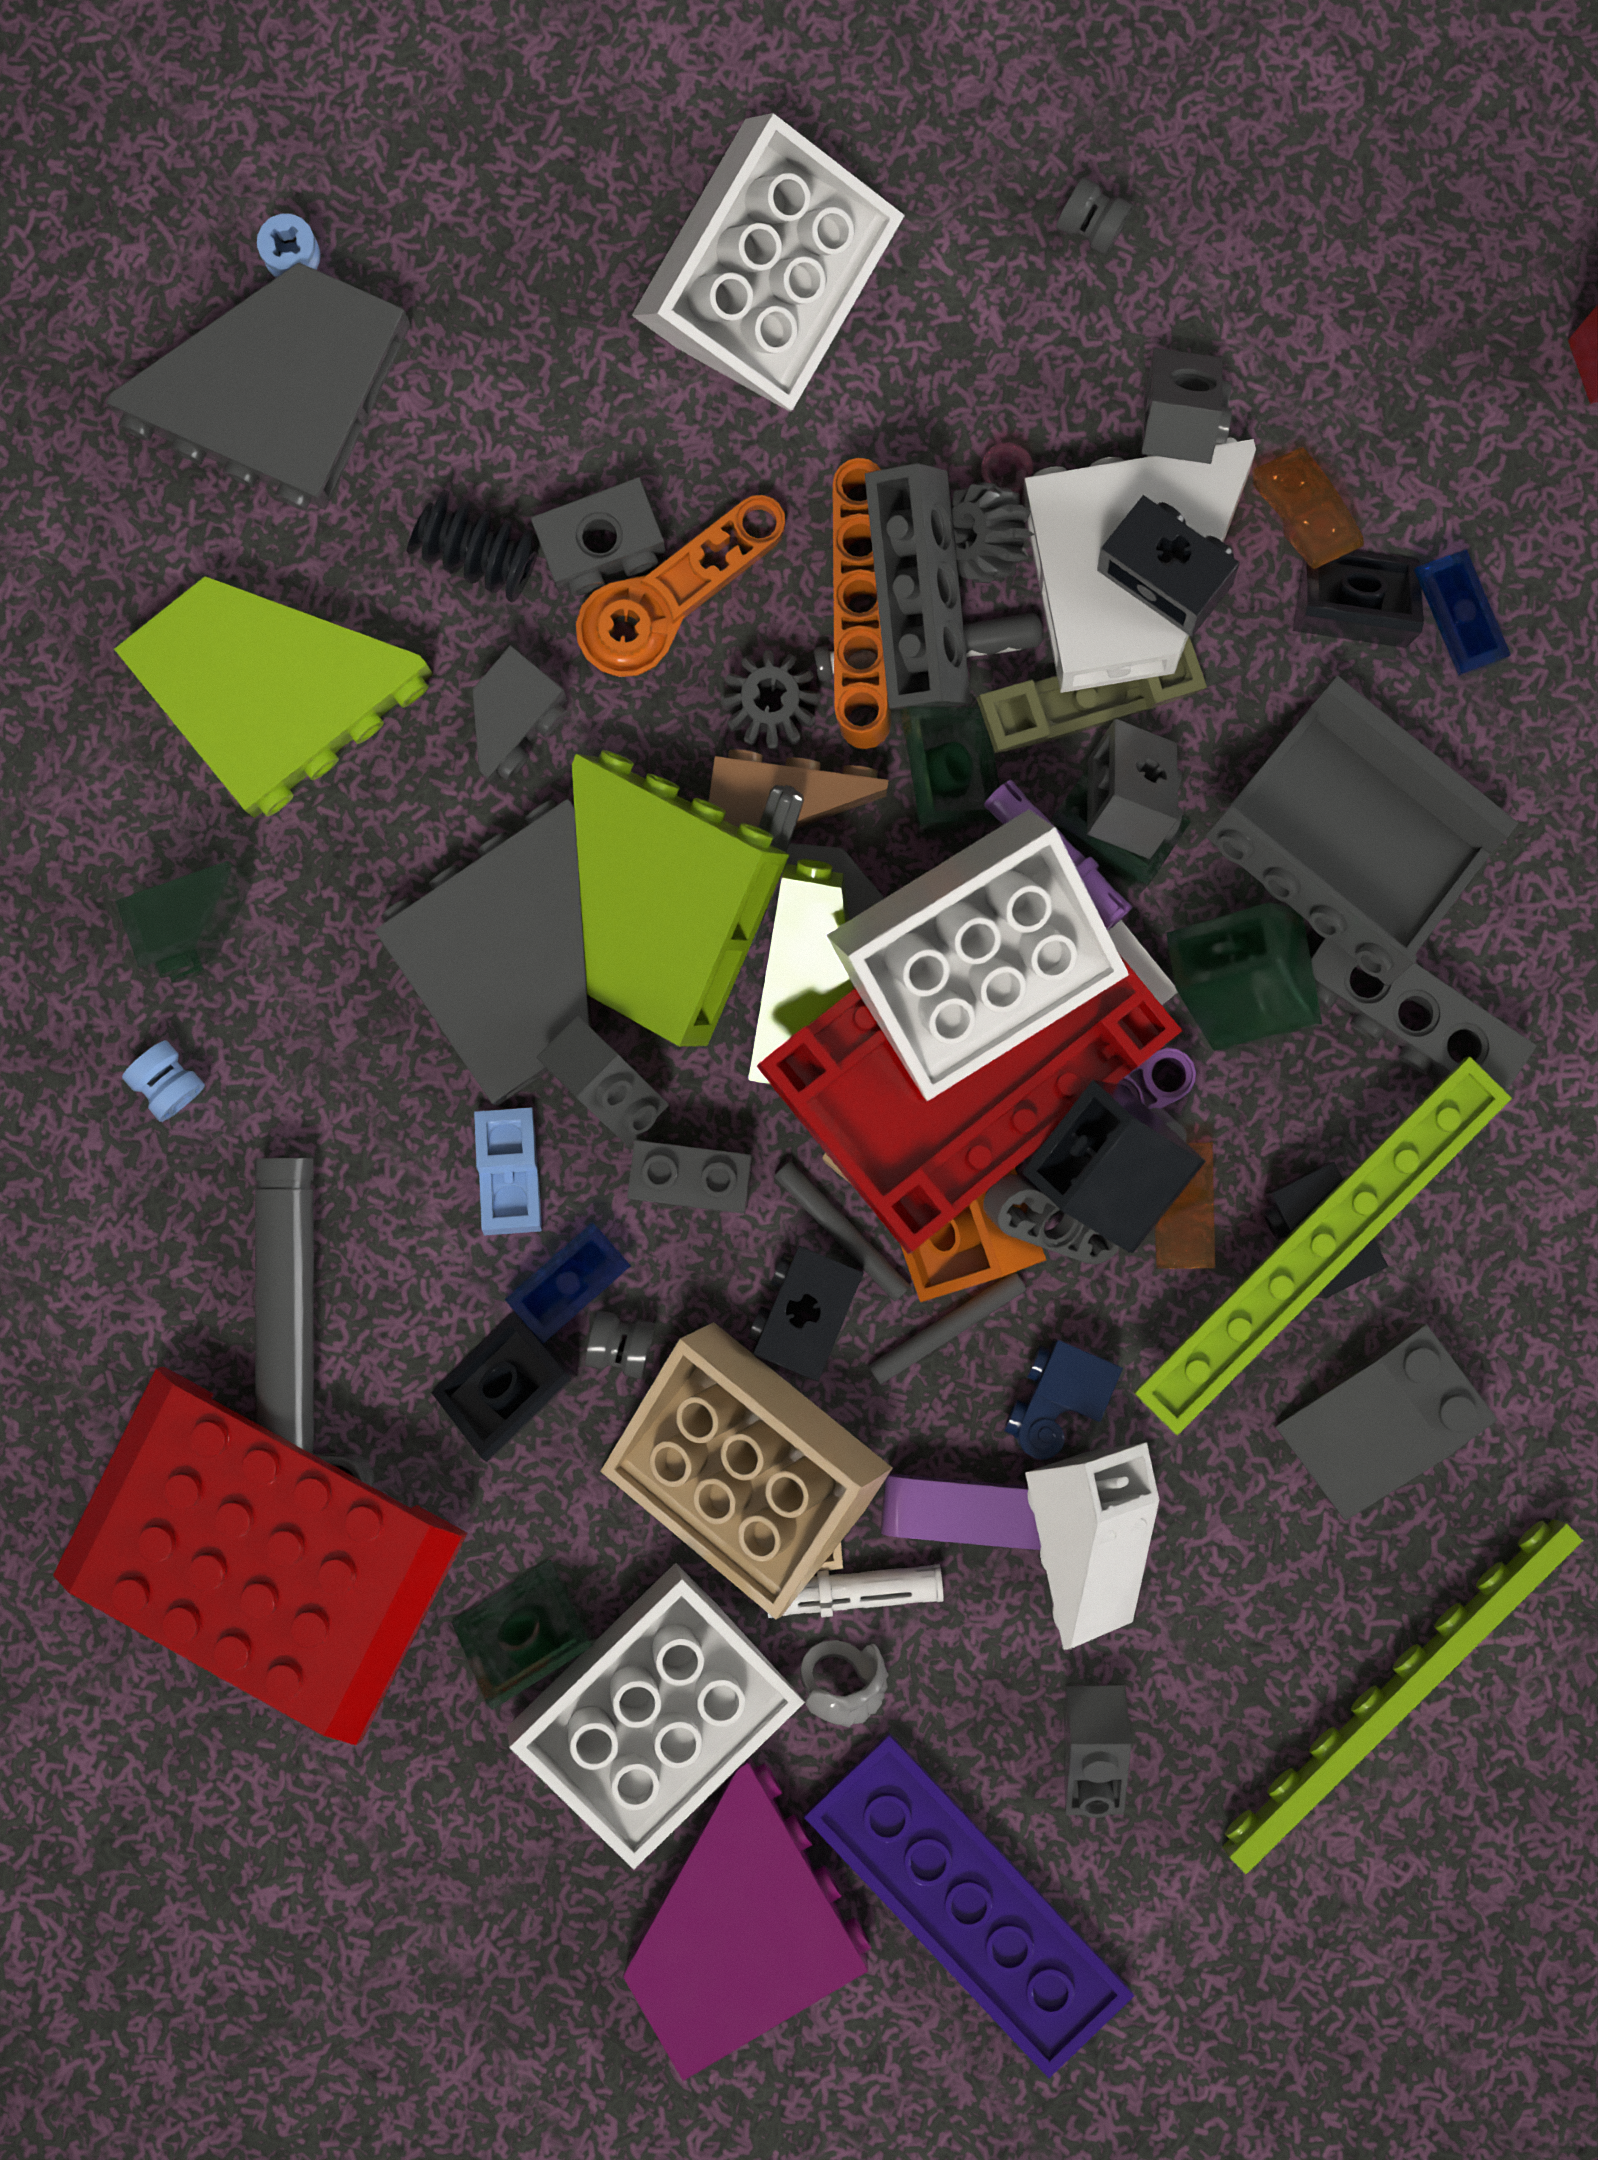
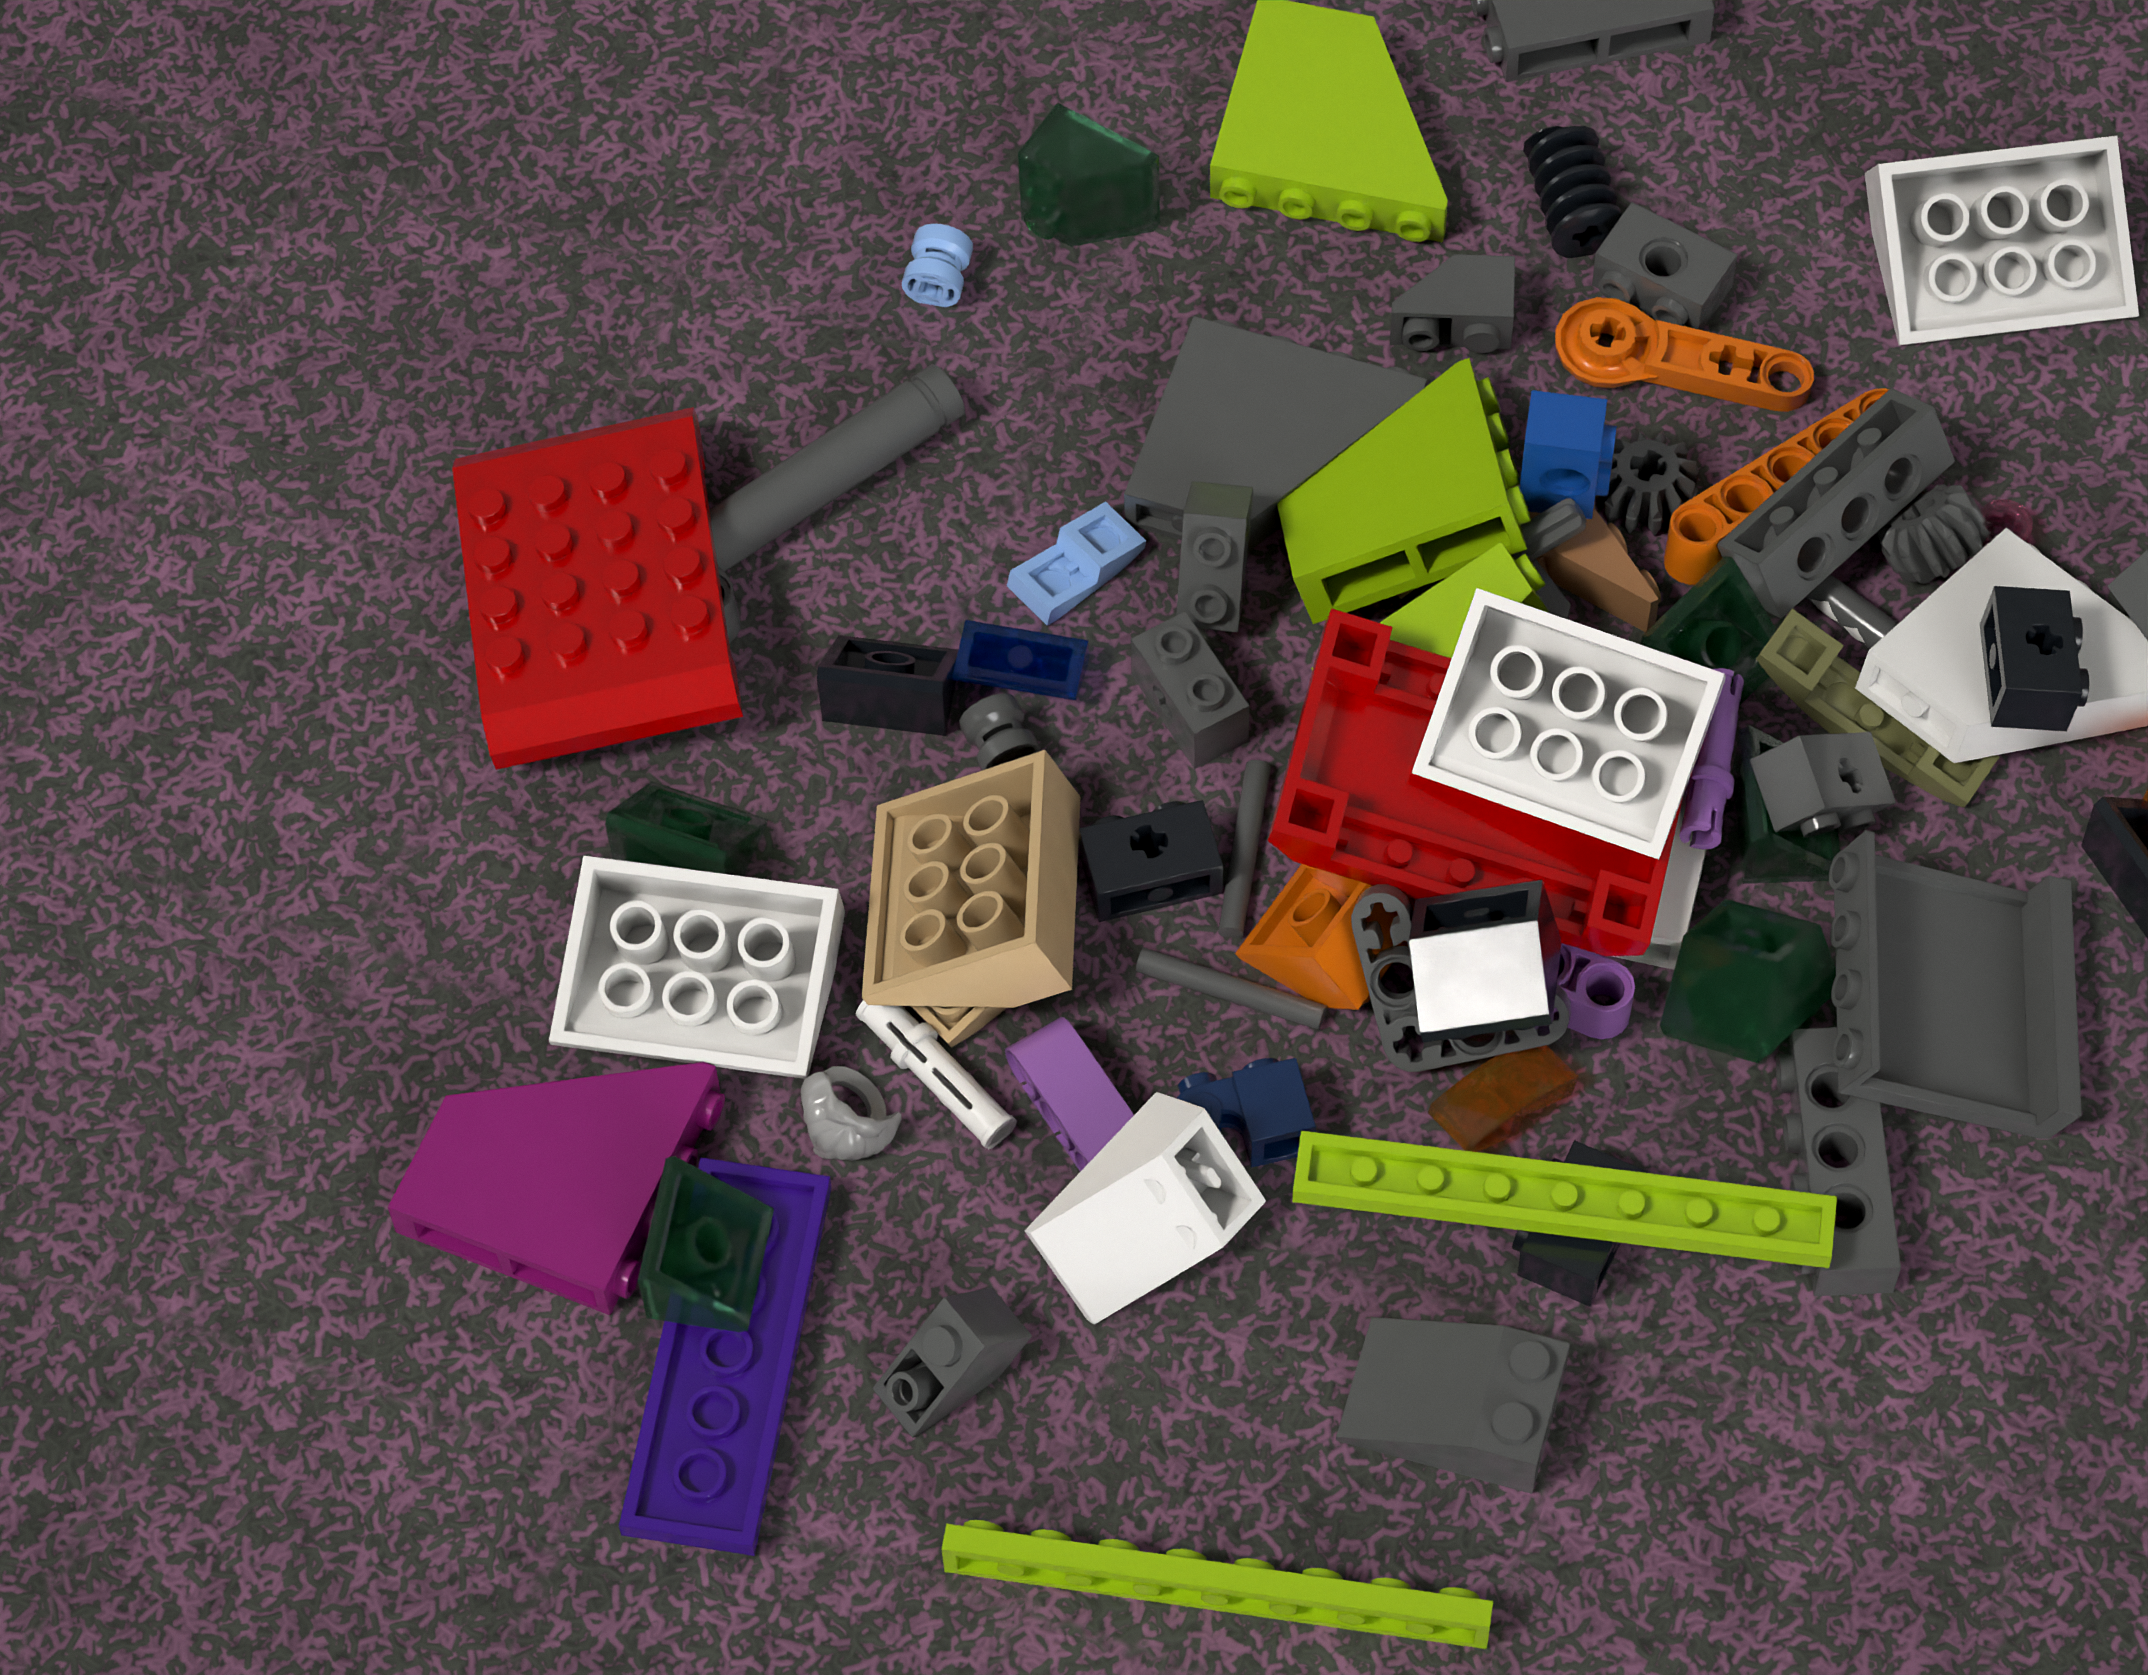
camera: 55 degrees right, 25 degrees down
(739, 765) = (1566, 451): none -> blue brick
(894, 1879) = (703, 1250): none -> clear green slope

